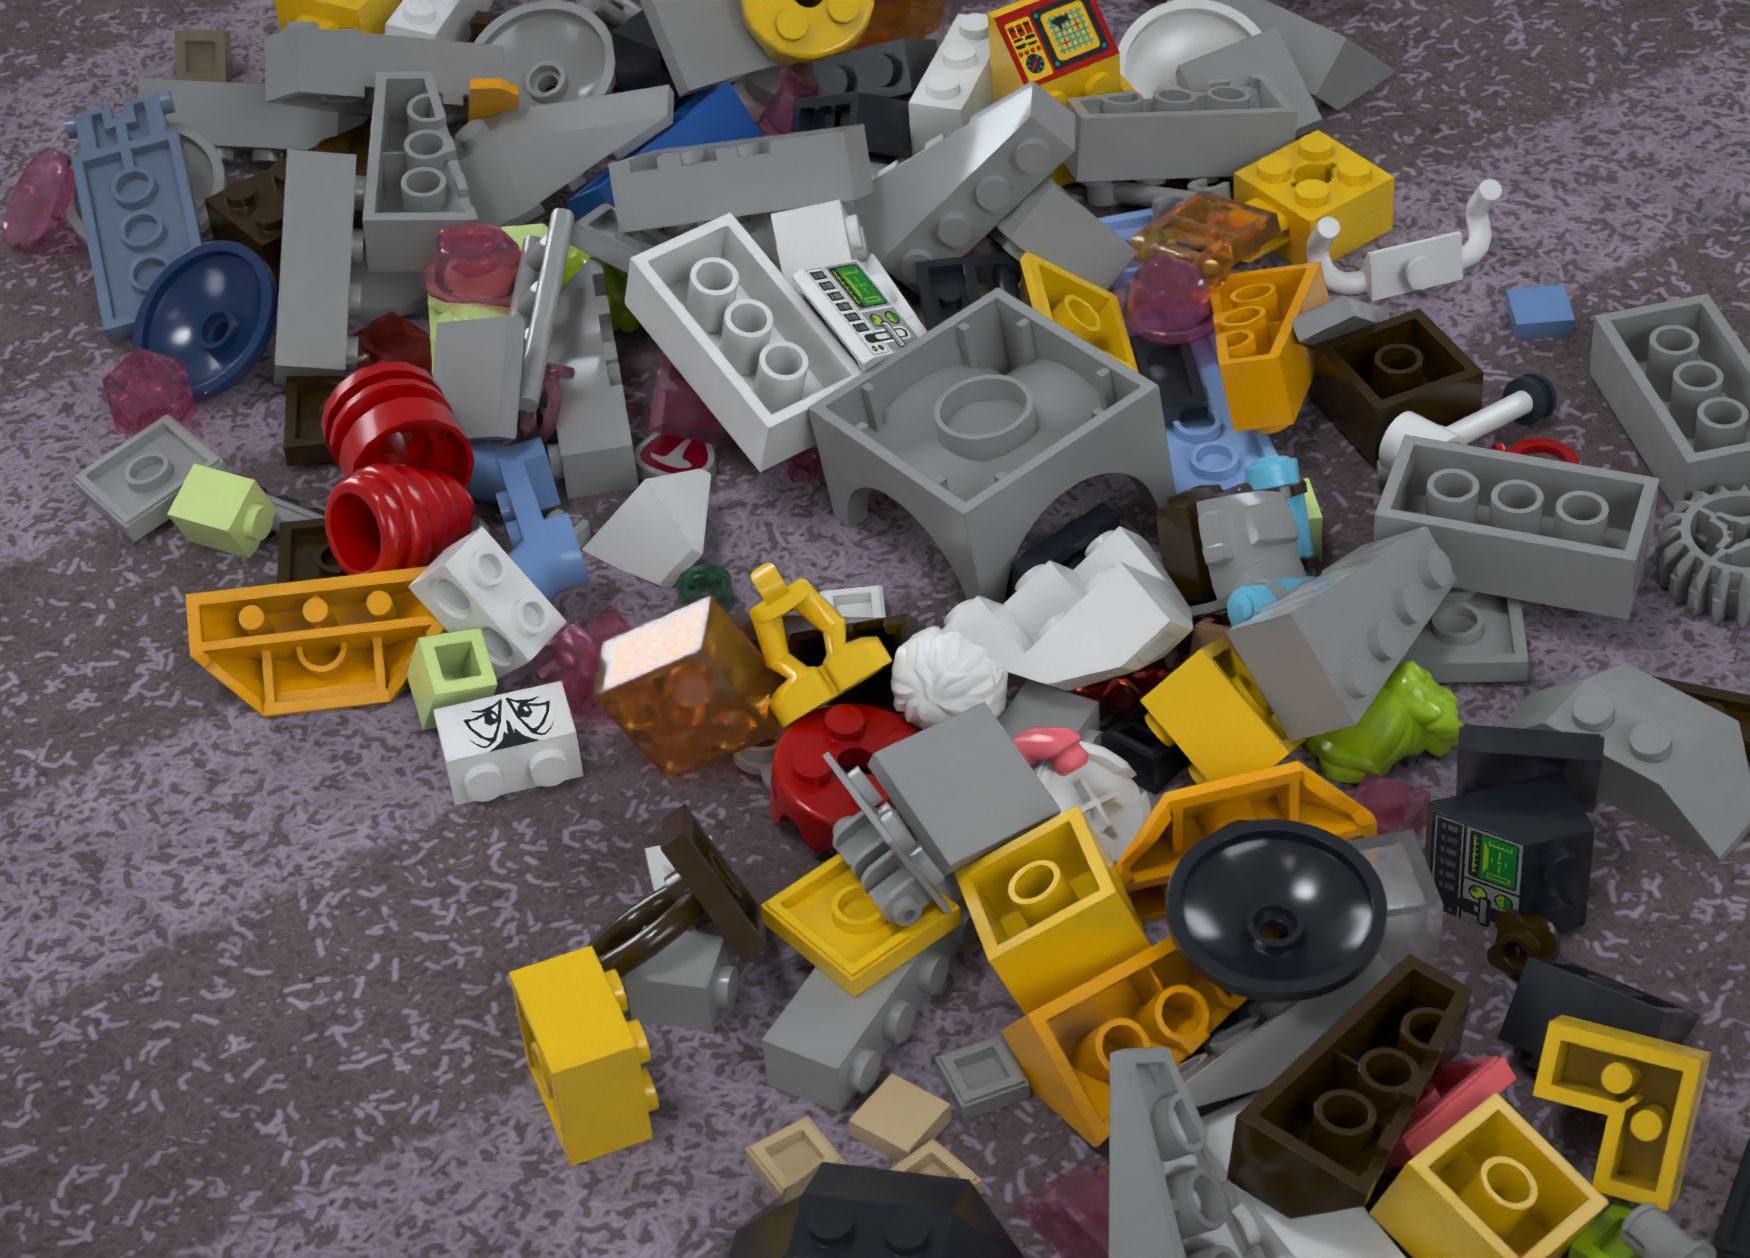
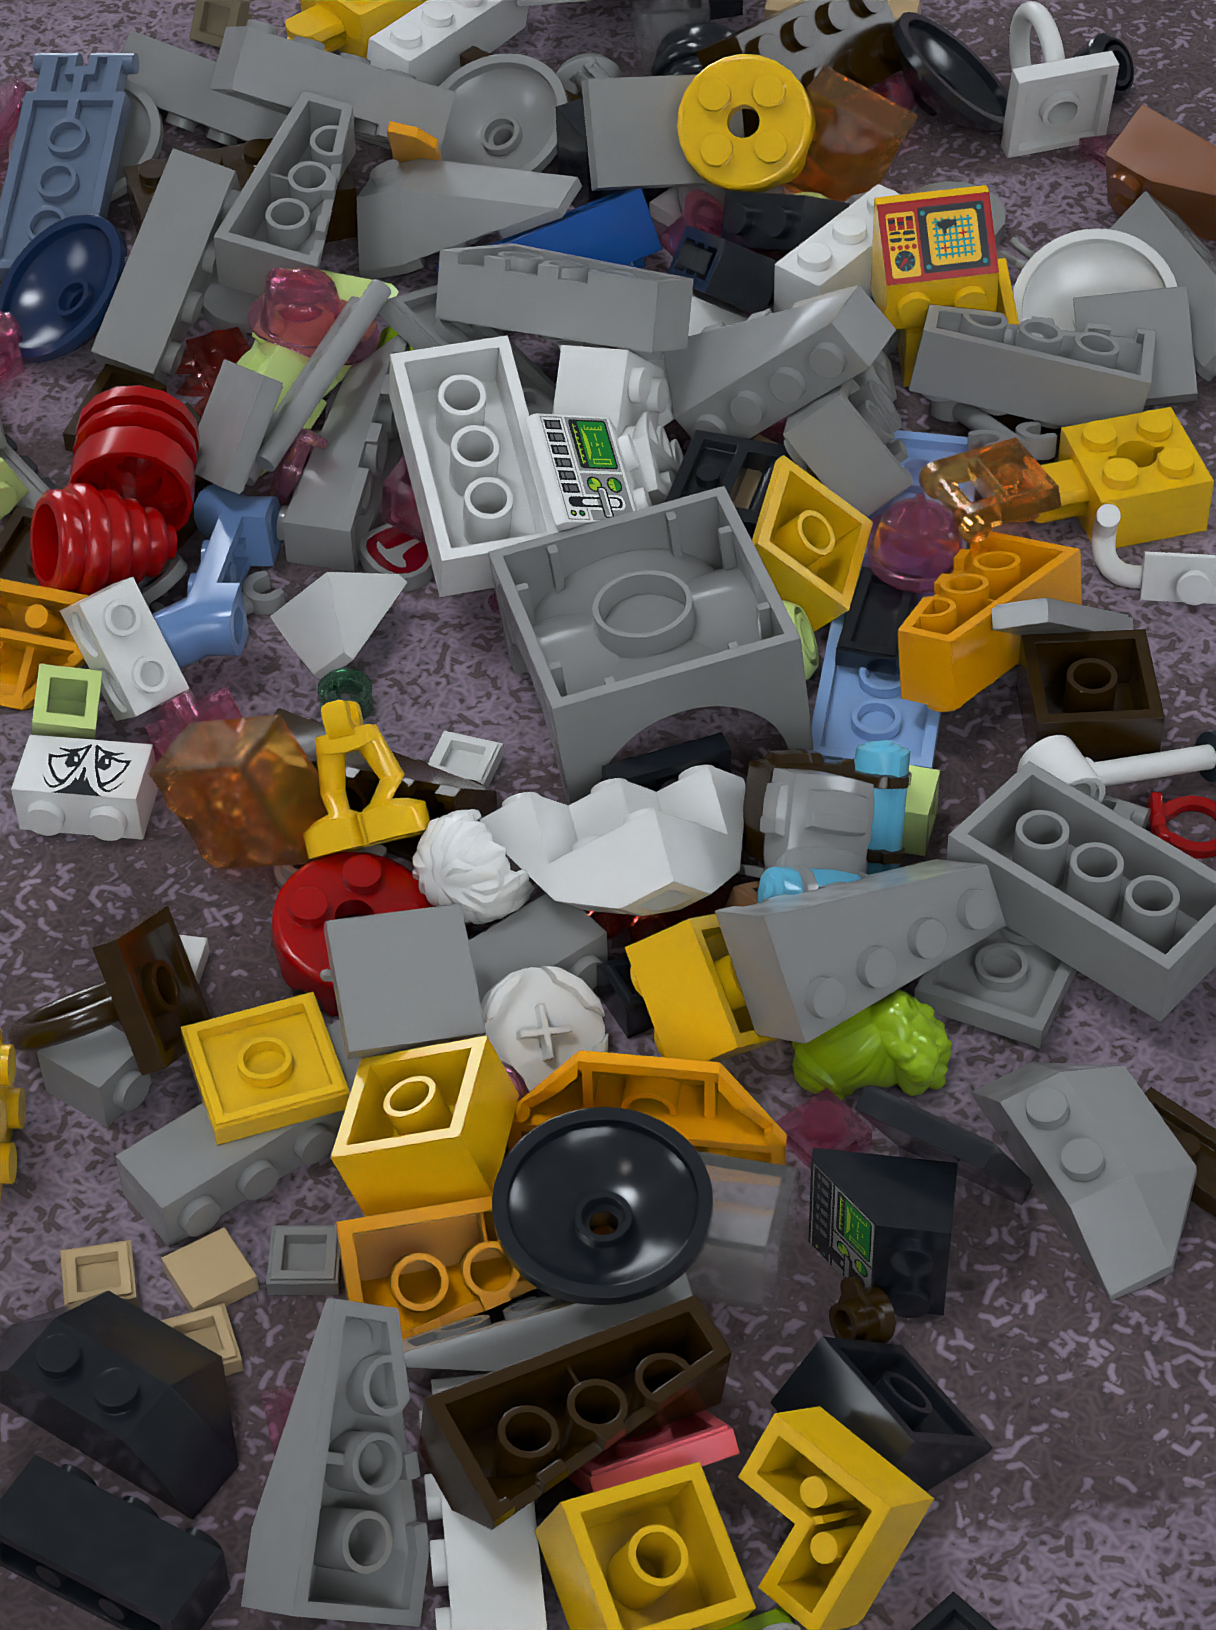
camera: 20 degrees right, 5 degrees up
(877, 852) = (298, 1012): light grey hinge -> none
(1056, 743) = (514, 960): coral arm -> none

